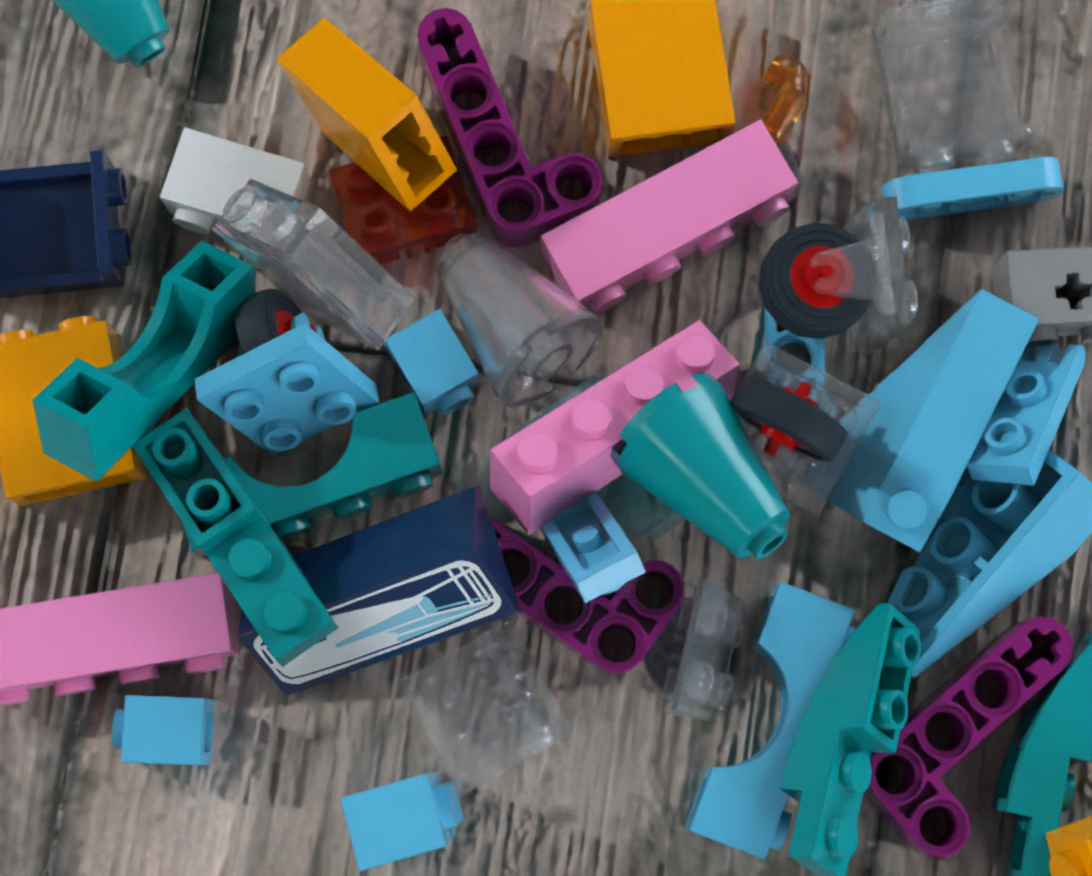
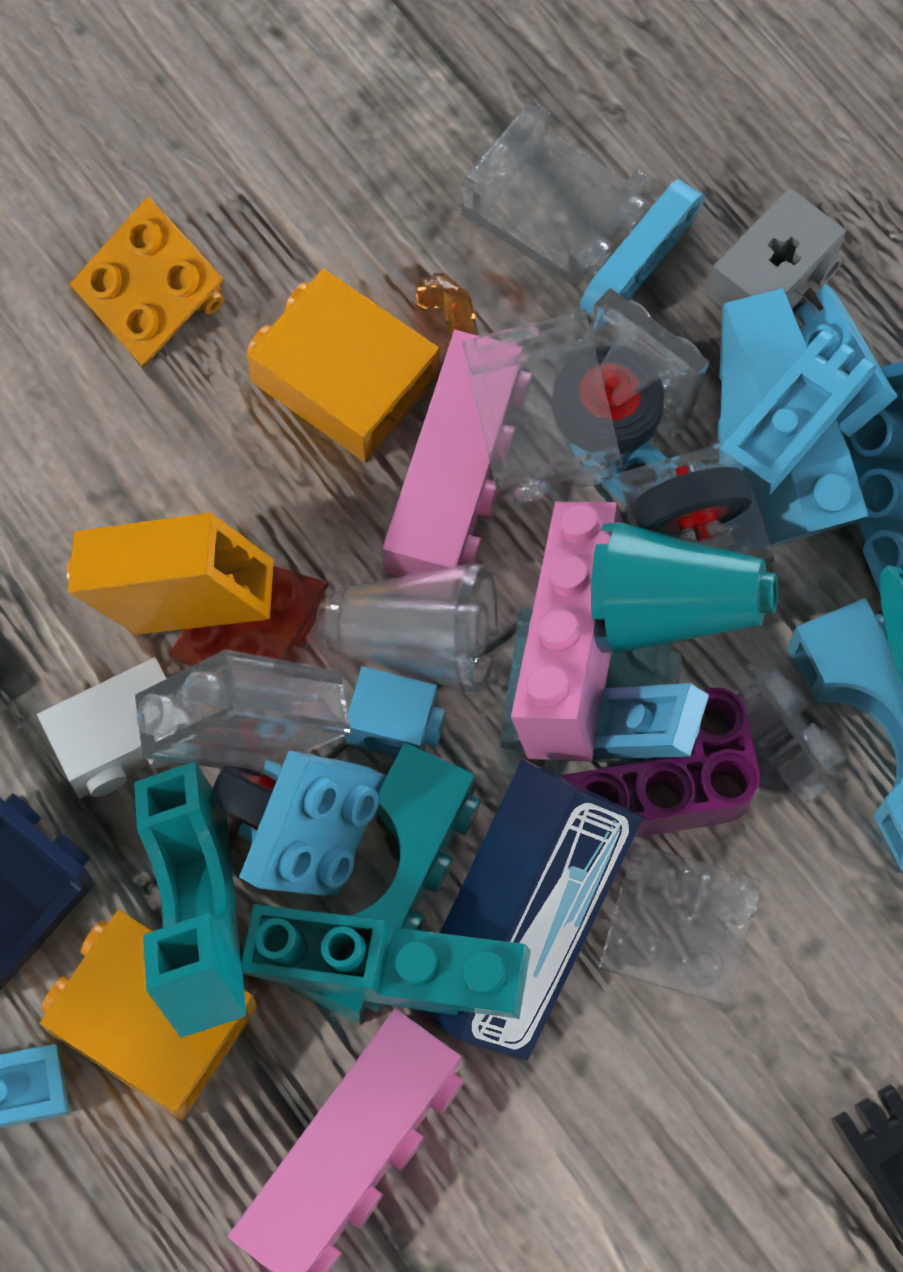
camera: 40 degrees left, 10 degrees down
(165, 730) = (467, 1170): medium azure brick -> none
(402, 819) = (724, 1029): medium azure arch -> none
(492, 126) = (268, 507): magenta beam -> none
(757, 238) = (543, 406): none -> clear panel
(939, 424) = (795, 413): none -> medium azure hinge

